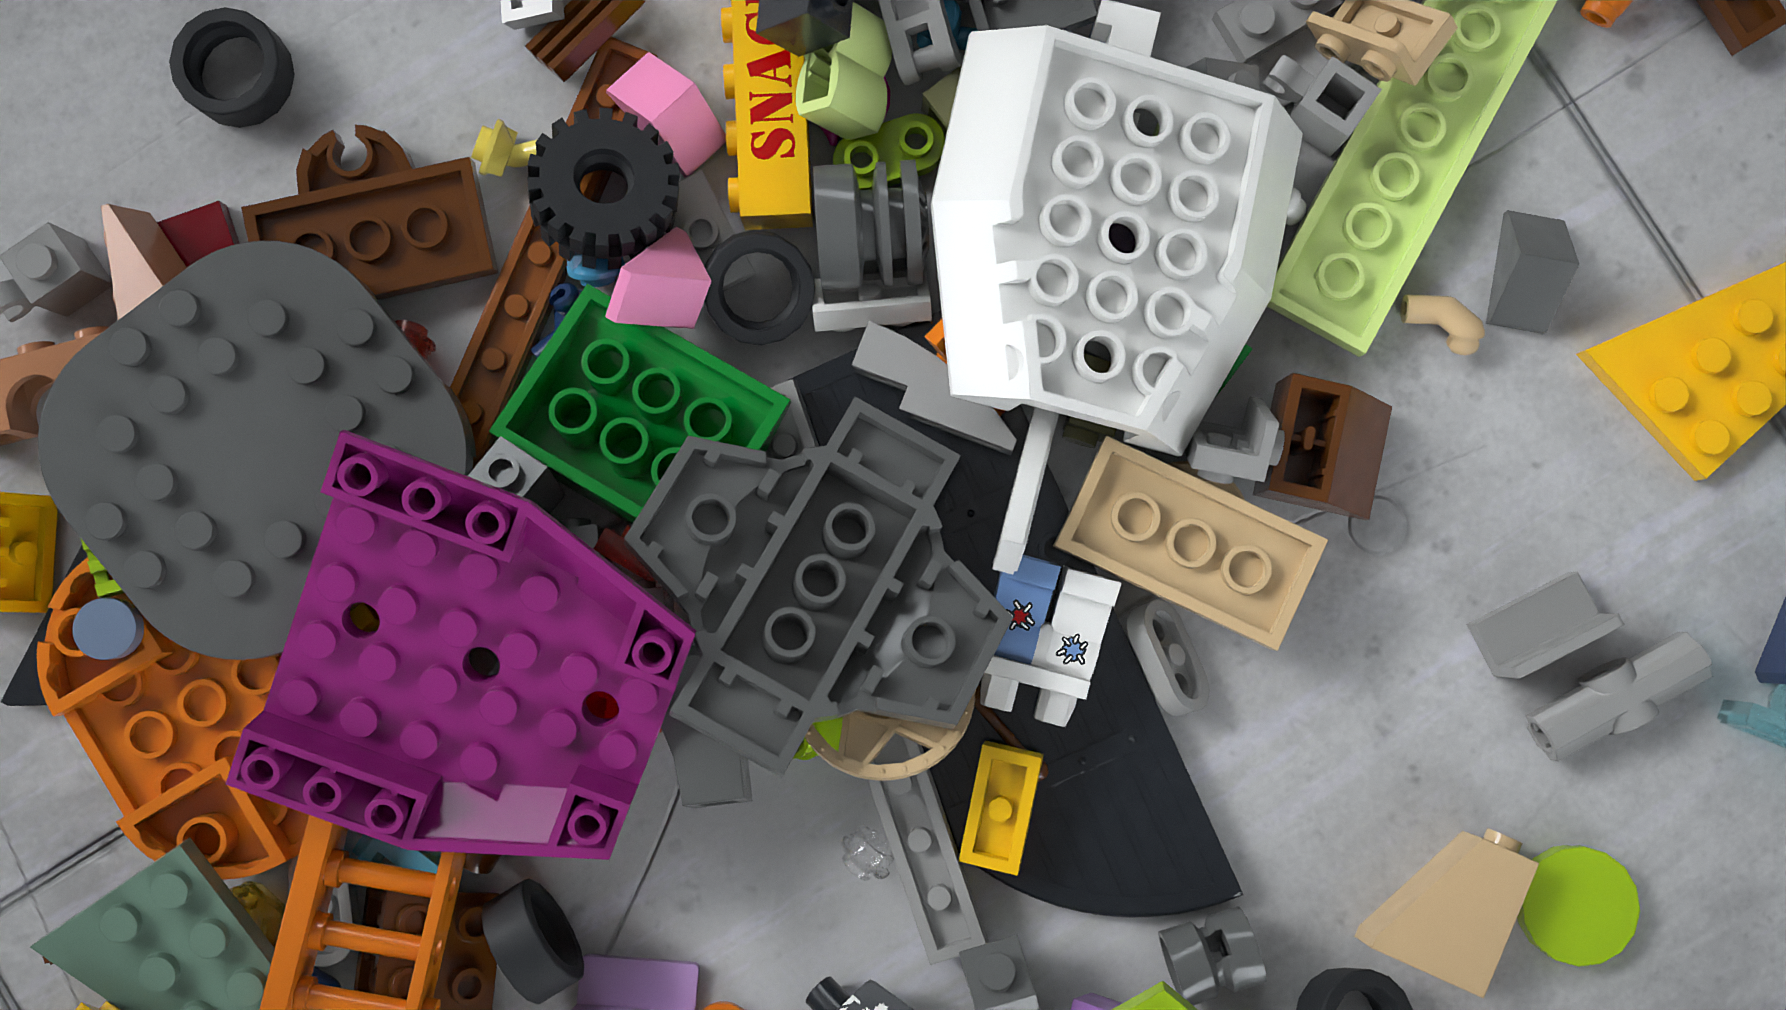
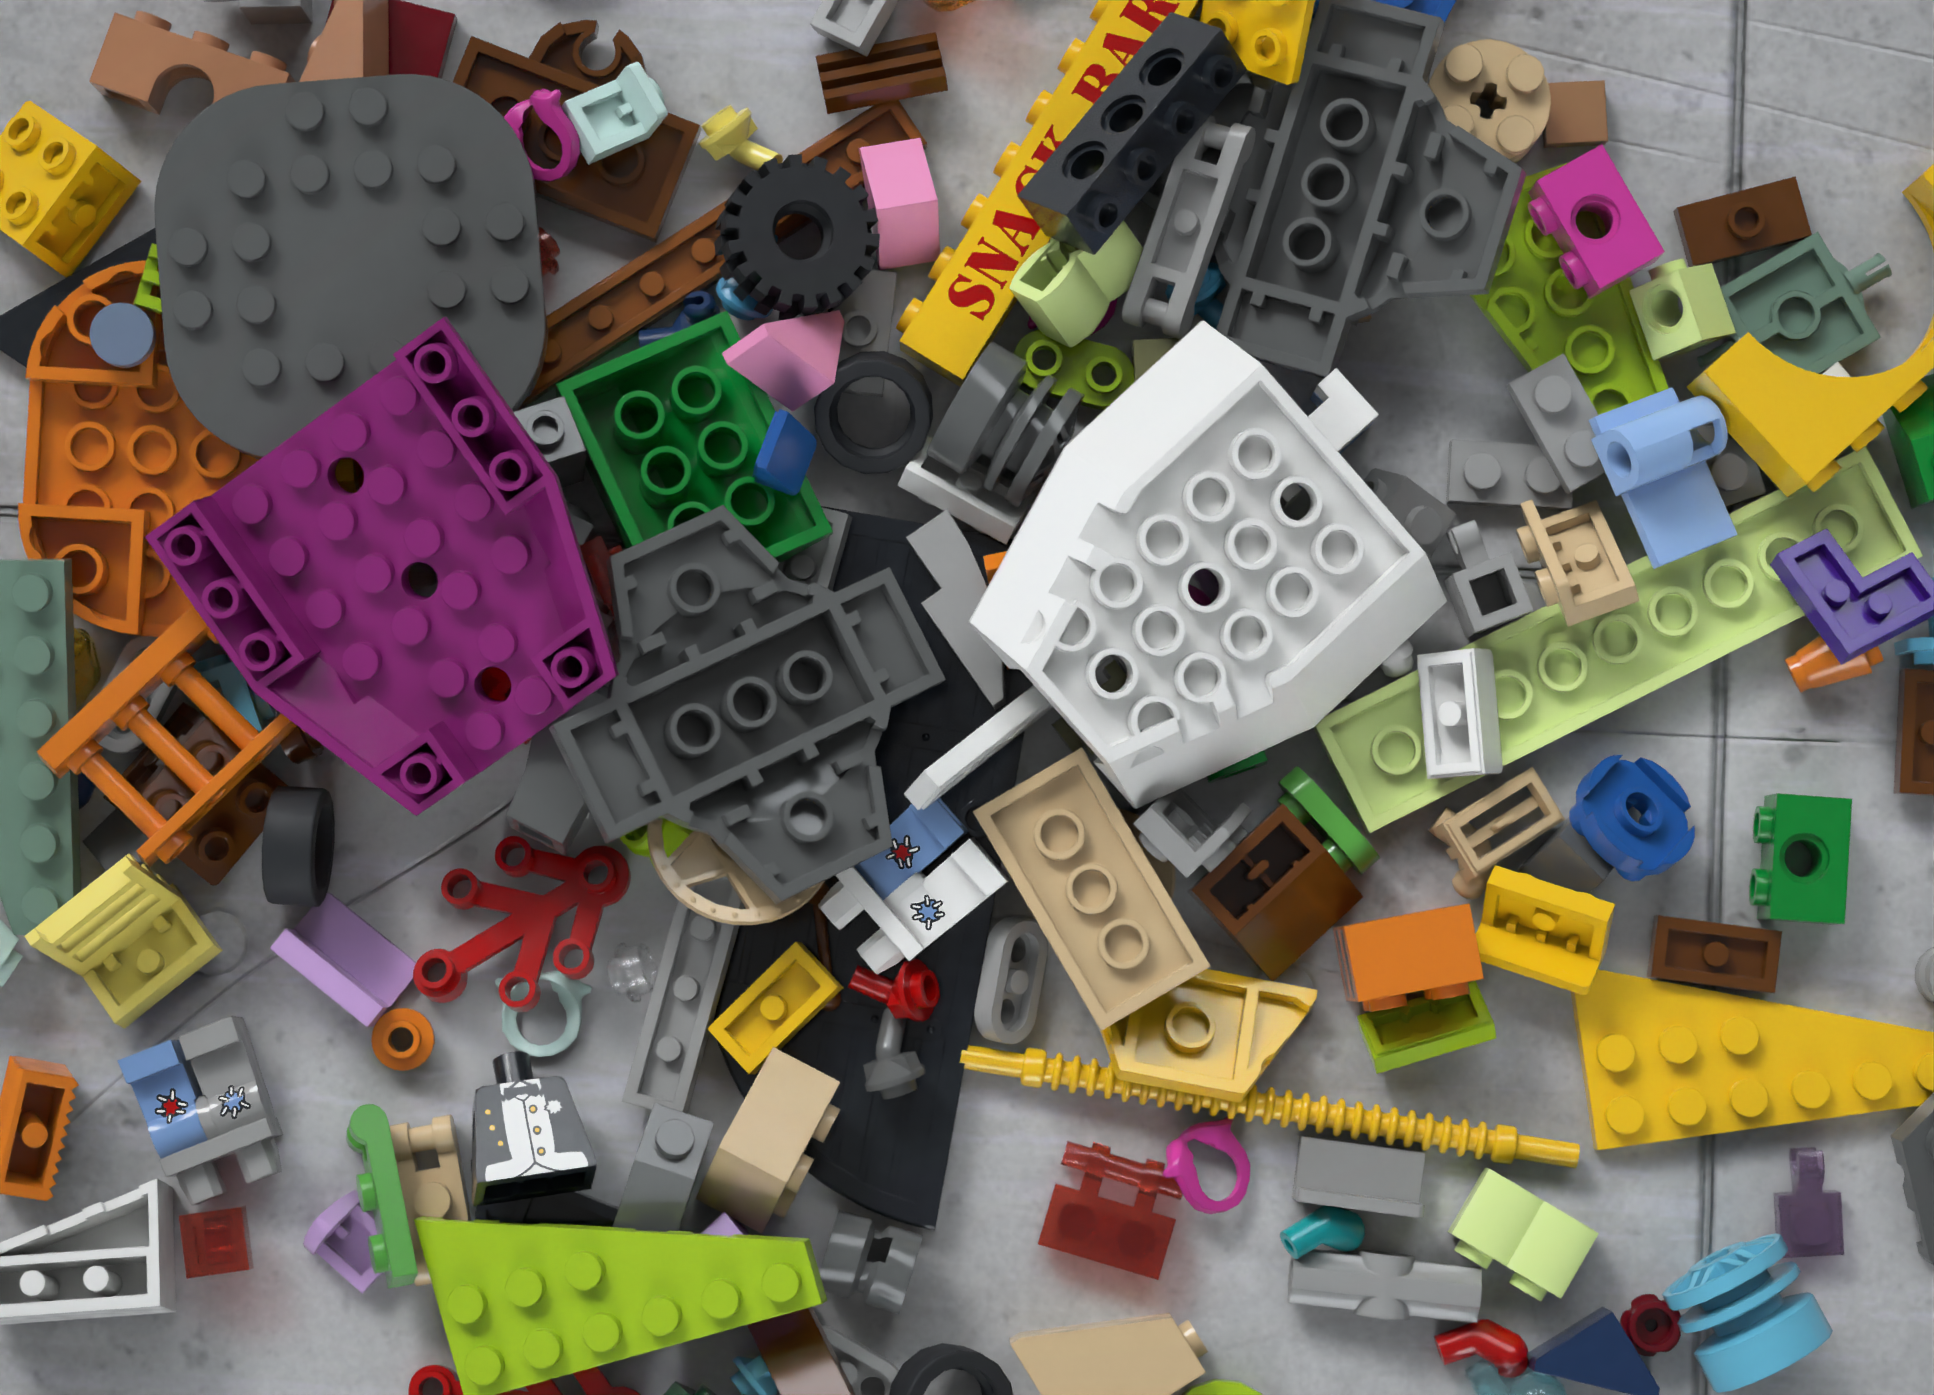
camera: 35 degrees right, 0 degrees up
(338, 219) = (549, 110): none -> dark pink piece
(393, 188) = (616, 113): none -> light aqua bracket
(710, 363) = (784, 454): none -> blue slope
(759, 869) = (530, 919): none -> red plant
(786, 931) = (570, 996): none -> light aqua piece
(1073, 930) = (764, 1148): none -> tan brick
(1100, 725) = (908, 996): none -> red plate
(1128, 795) = (892, 1071): none -> dark grey plate
(1325, 363) = (1341, 837): none -> bright green plate
(1356, 596) = (1208, 1034): none -> yellow wing
(1371, 214) = (1459, 713): none -> white slope
(1376, 800) = (1105, 1228): none -> clear red plate
(1404, 714) = (1182, 1169): none -> dark pink piece
(1447, 310) = (1462, 846): none -> tan tile
(1470, 425) = (1408, 954): none -> orange brick
(1511, 473) = (1425, 1029): none -> lime plate
(1543, 687) = (1326, 1226): none -> teal arm
(1554, 336) = (1543, 930): none -> yellow bracket
(1559, 203) = (1631, 846): none -> blue plate
(1627, 525) = (1501, 1144): none -> yellow hose
(1688, 268) = (1714, 954): none -> reddish brown plate
(1696, 582) = (1522, 1234): none -> yellowish green brick
(1727, 683) = (1488, 1341): none -> red arm
(1734, 150) = (1824, 829): none -> green brick

